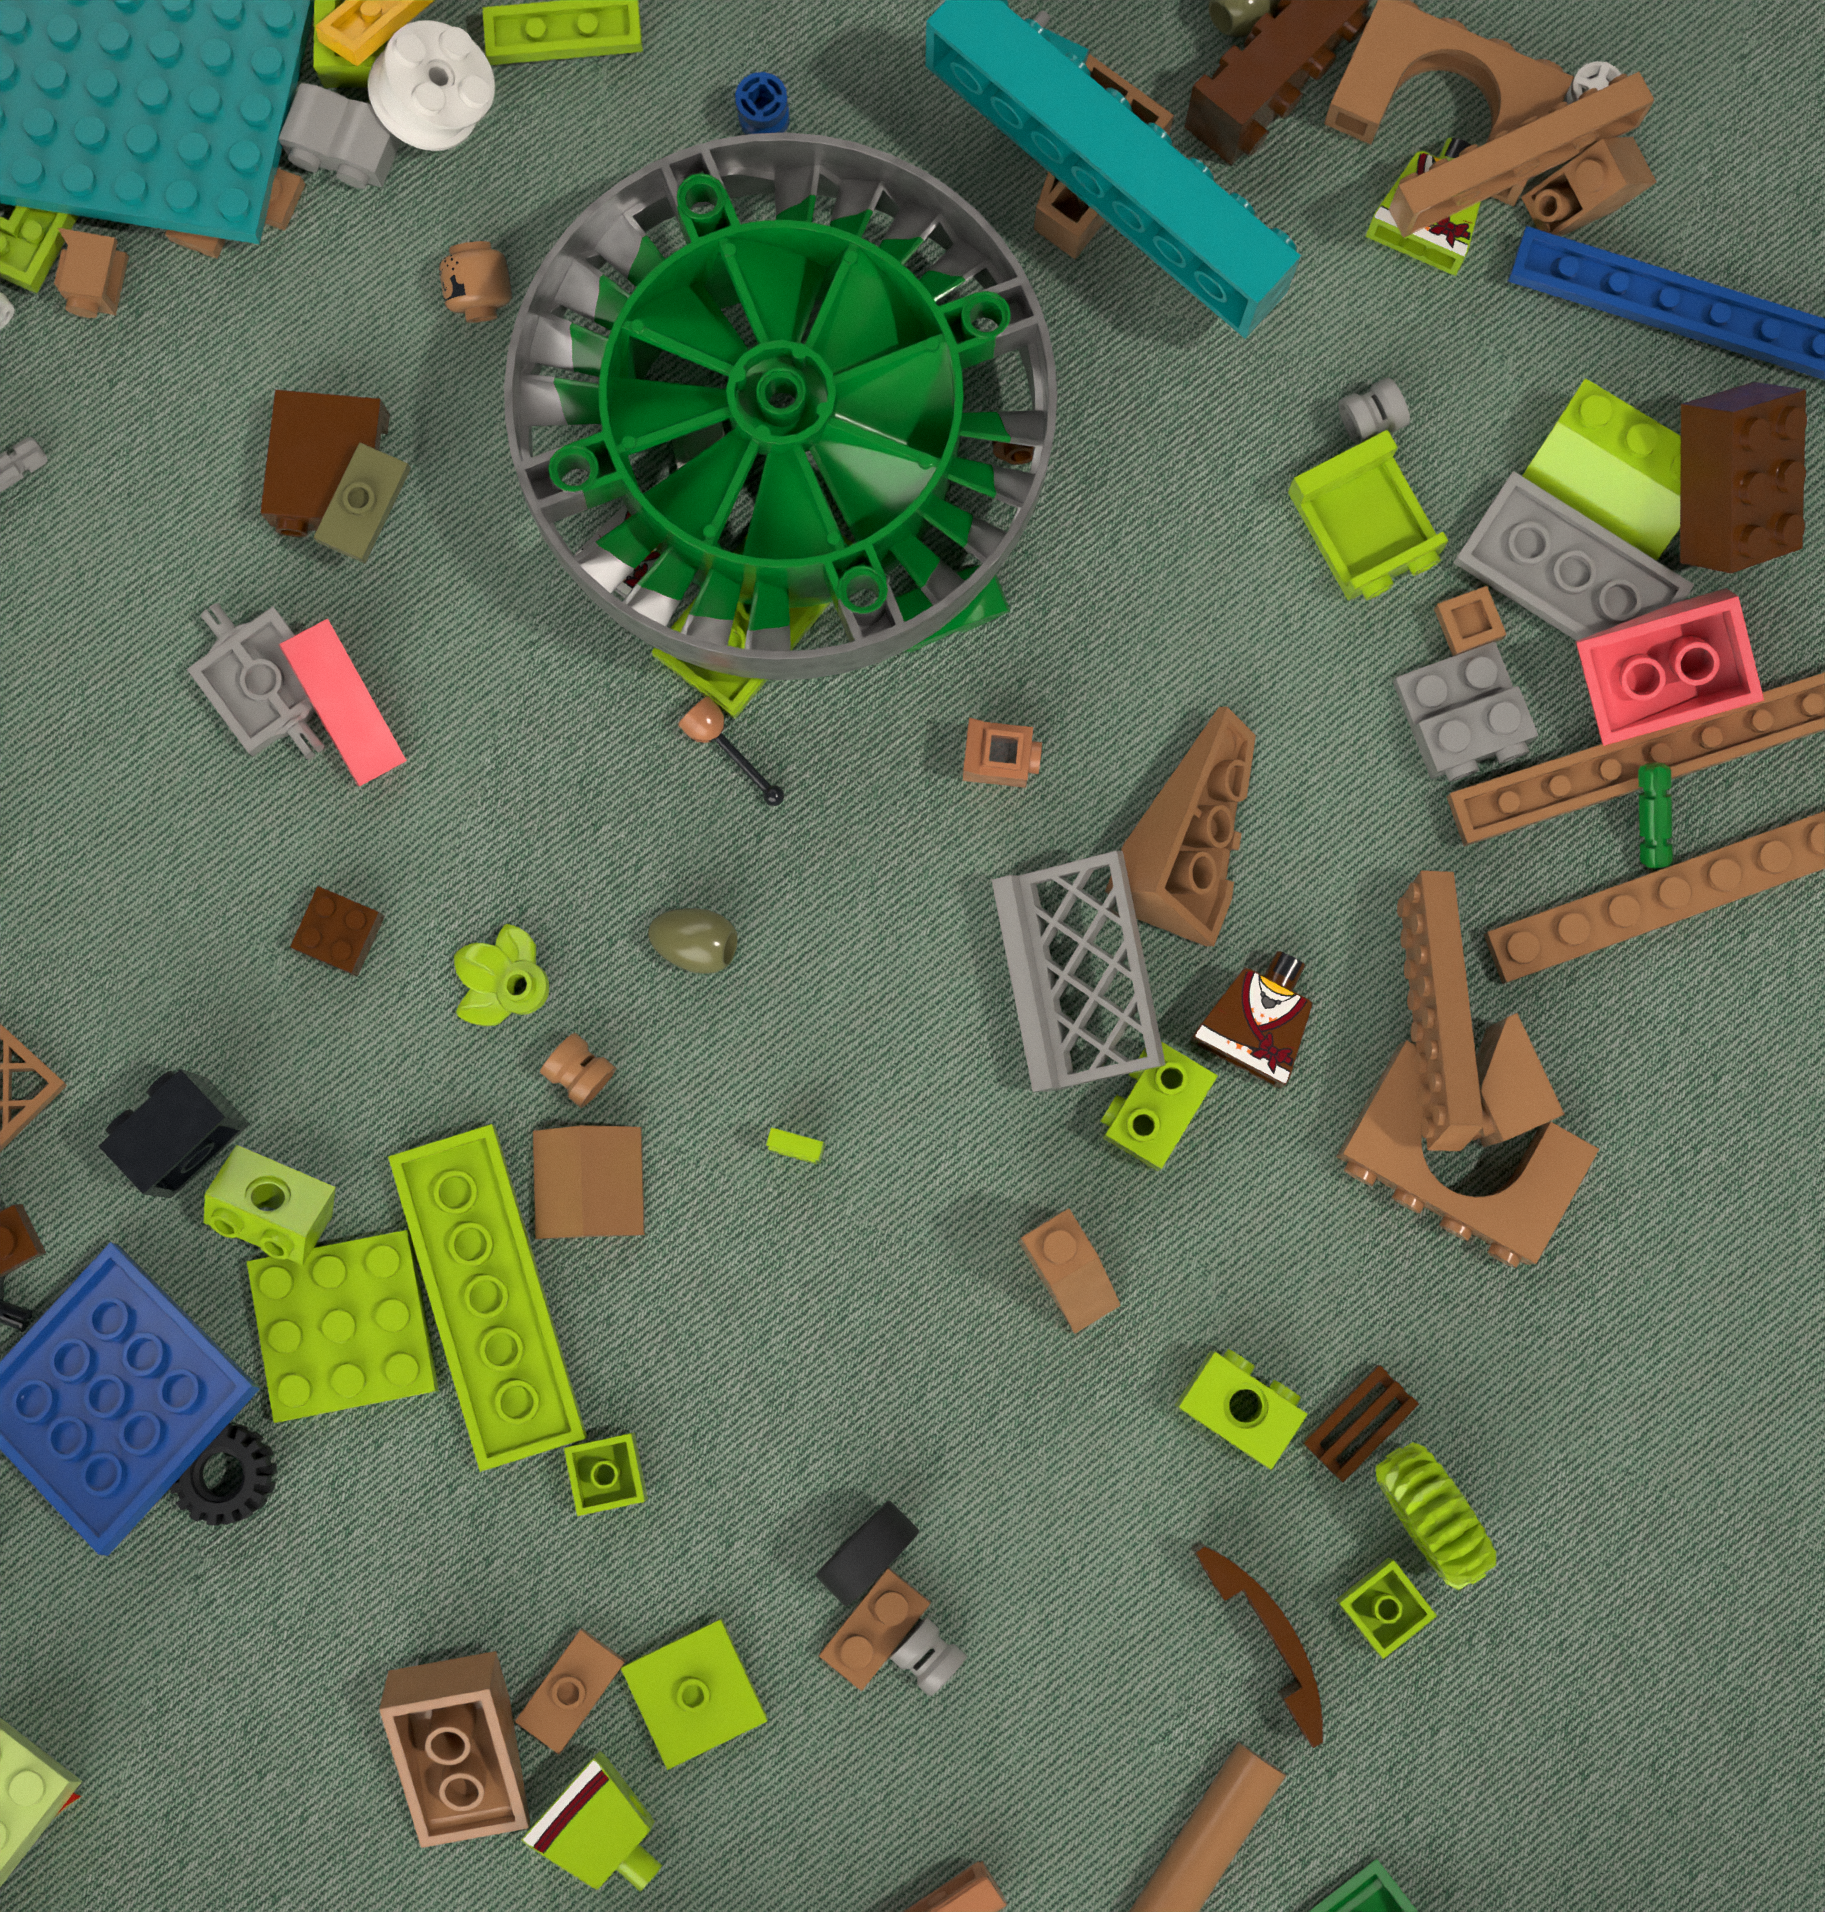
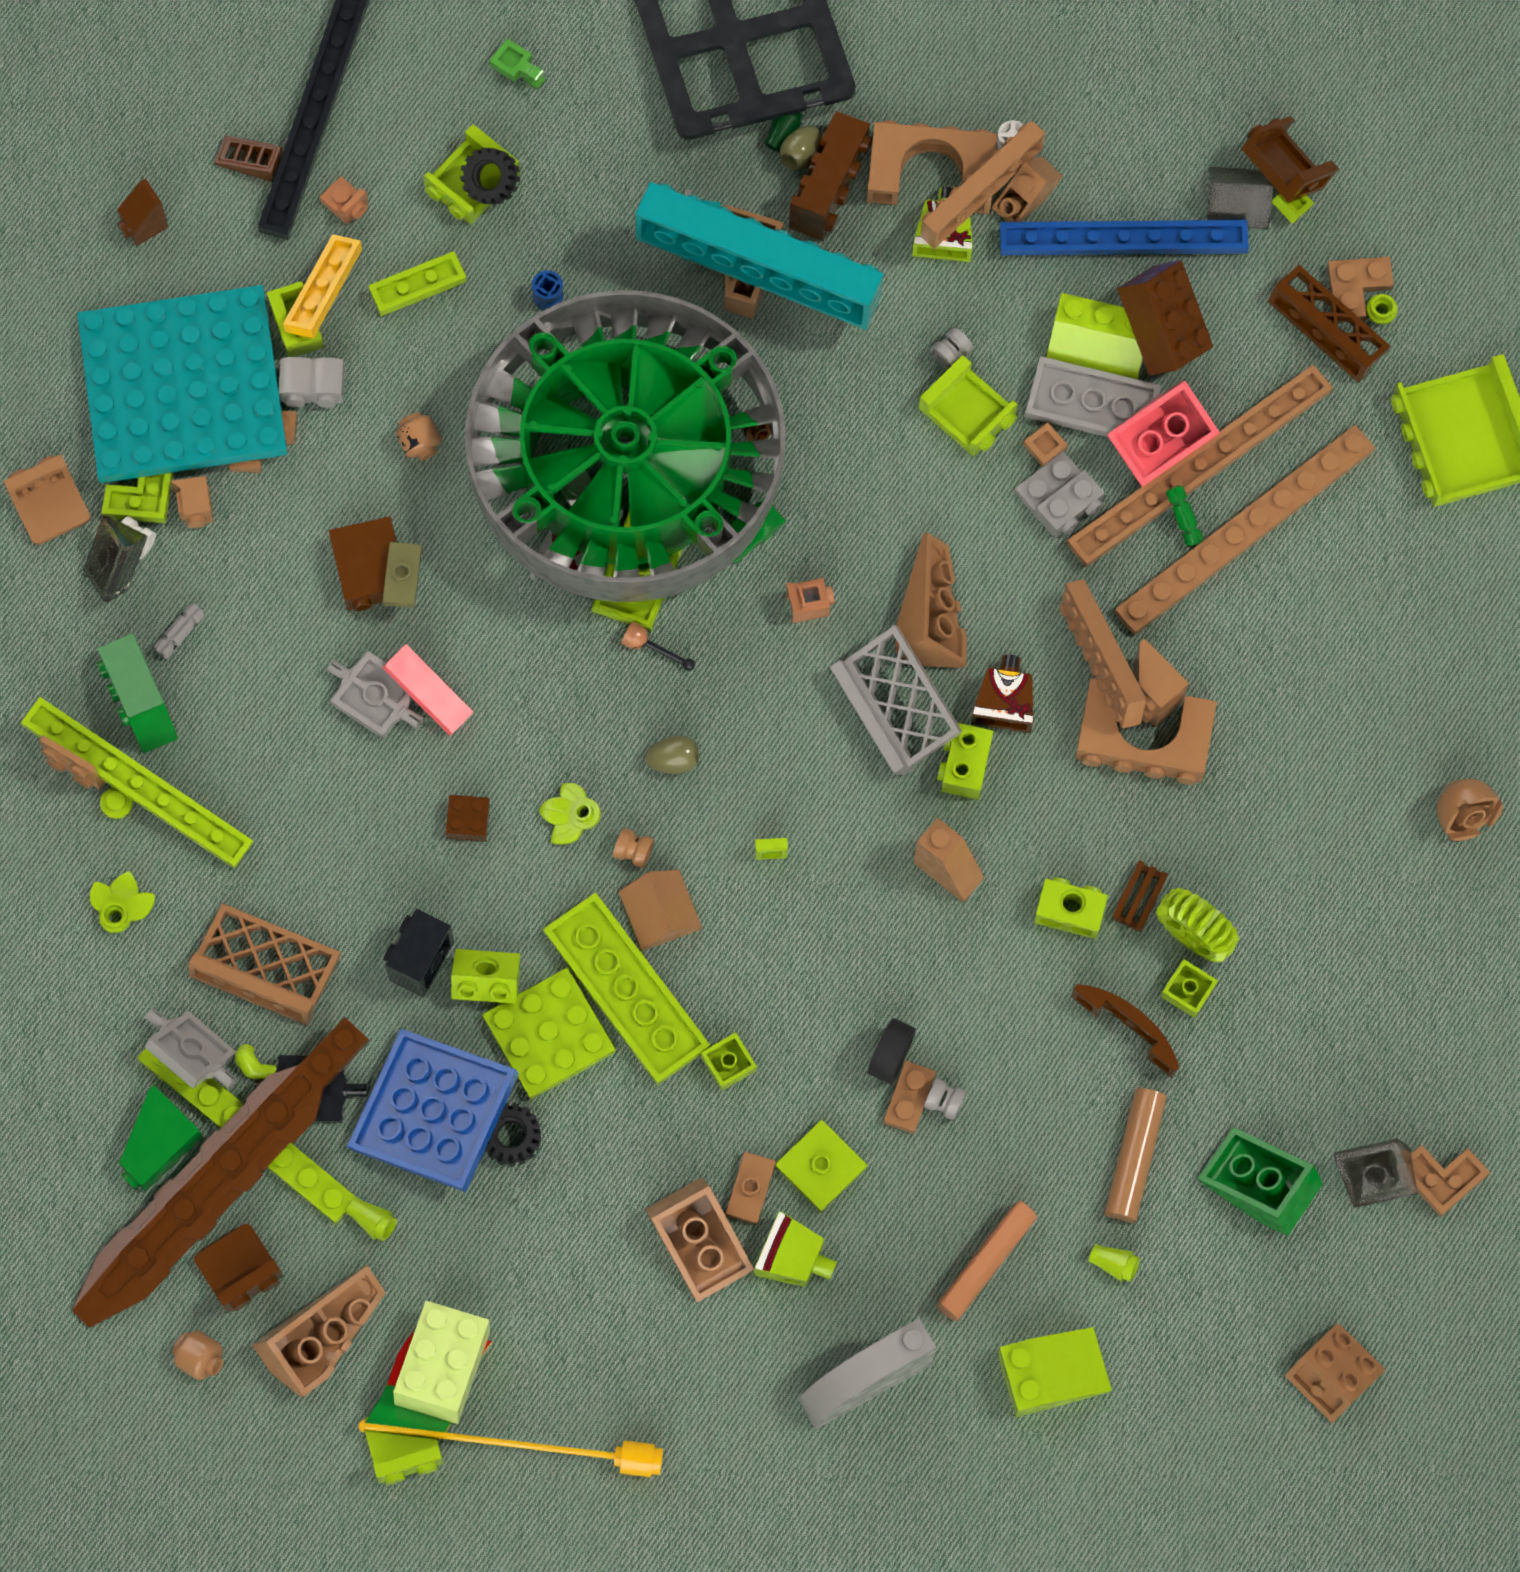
camera: 25 degrees left, 10 degrees down
(431, 85) = (357, 336): white wheel -> none

